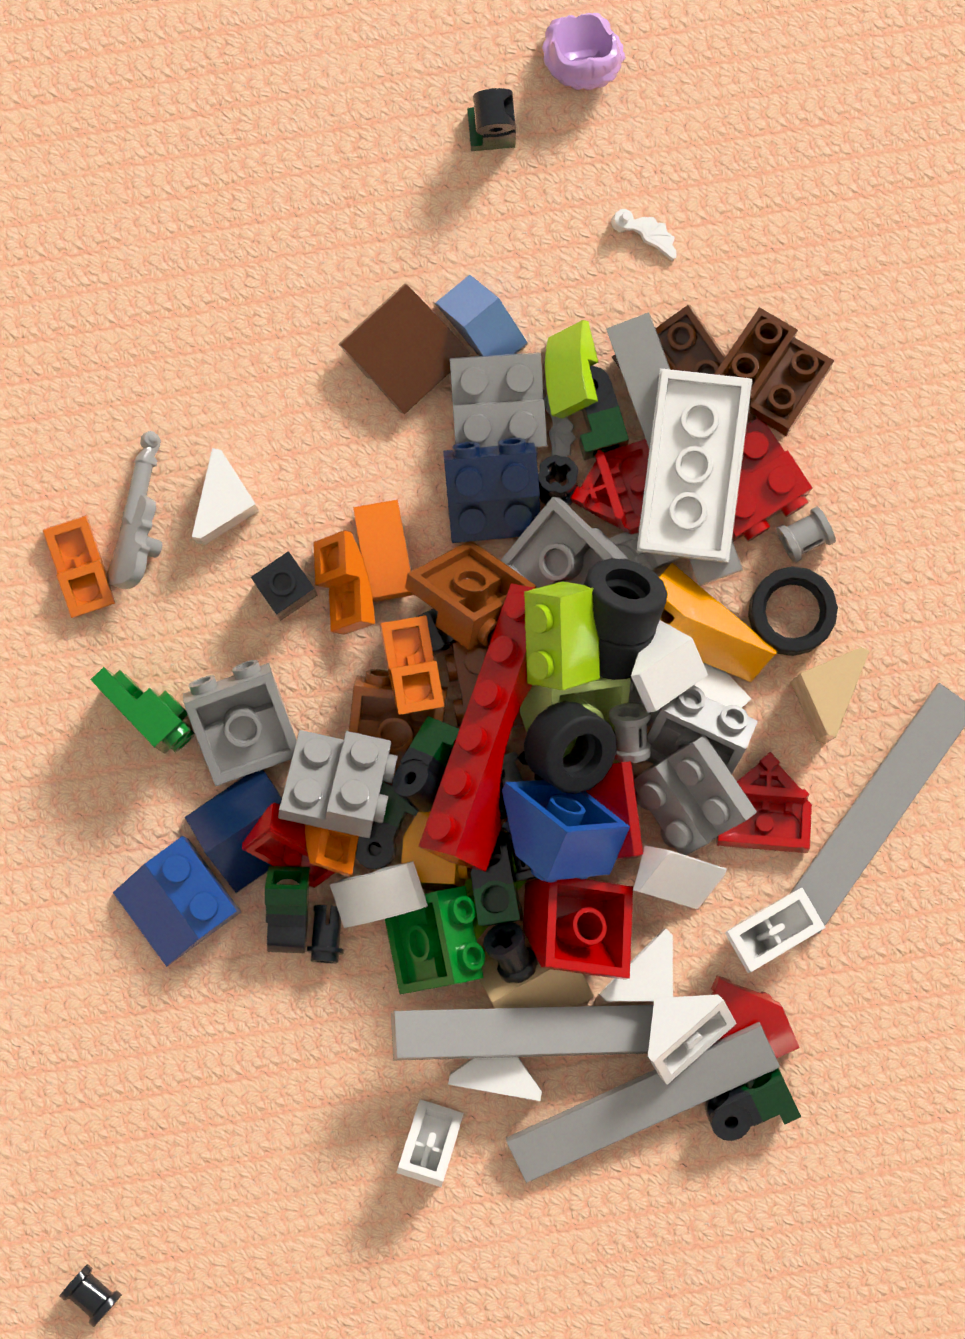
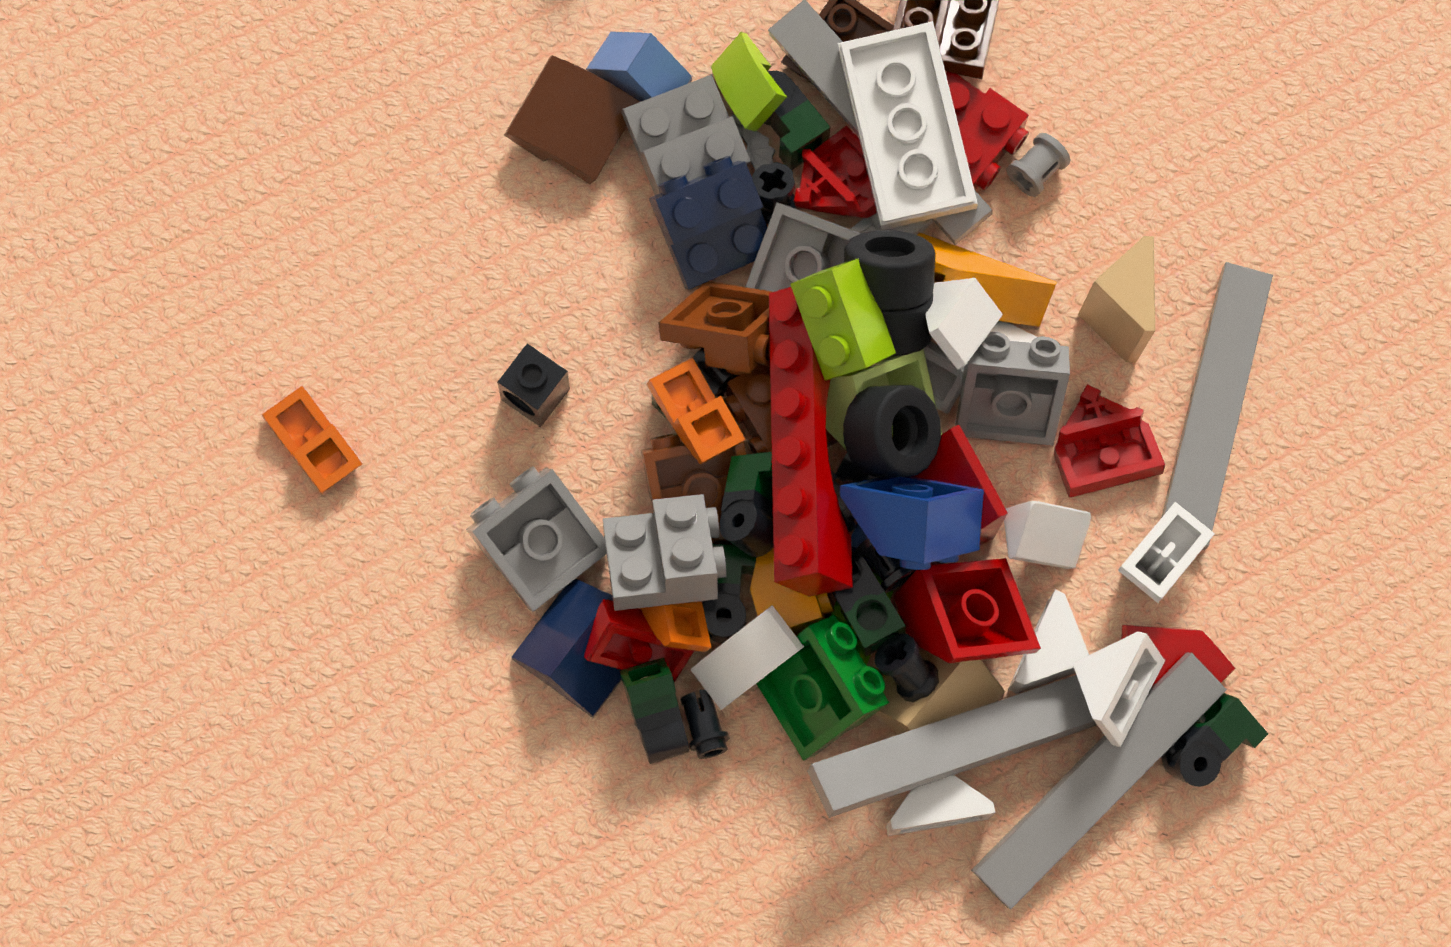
camera: 25 degrees left, 10 degrees down
(133, 544) = (362, 398): light grey piece -> none
(153, 715) = (442, 557): green plate -> none
(176, 900) = (533, 743): blue slope -> none
(222, 501) = (442, 323): white slope -> none
(342, 570) = (593, 357): orange slope -> none
(383, 549) = (622, 320): orange slope -> none
(430, 1143) = (895, 904): white slope -> none
(631, 732) = (946, 397): light grey bush -> none
(692, 796) = (1033, 444): light grey plate -> none
(821, 591) = (1067, 209): black tyre -> none

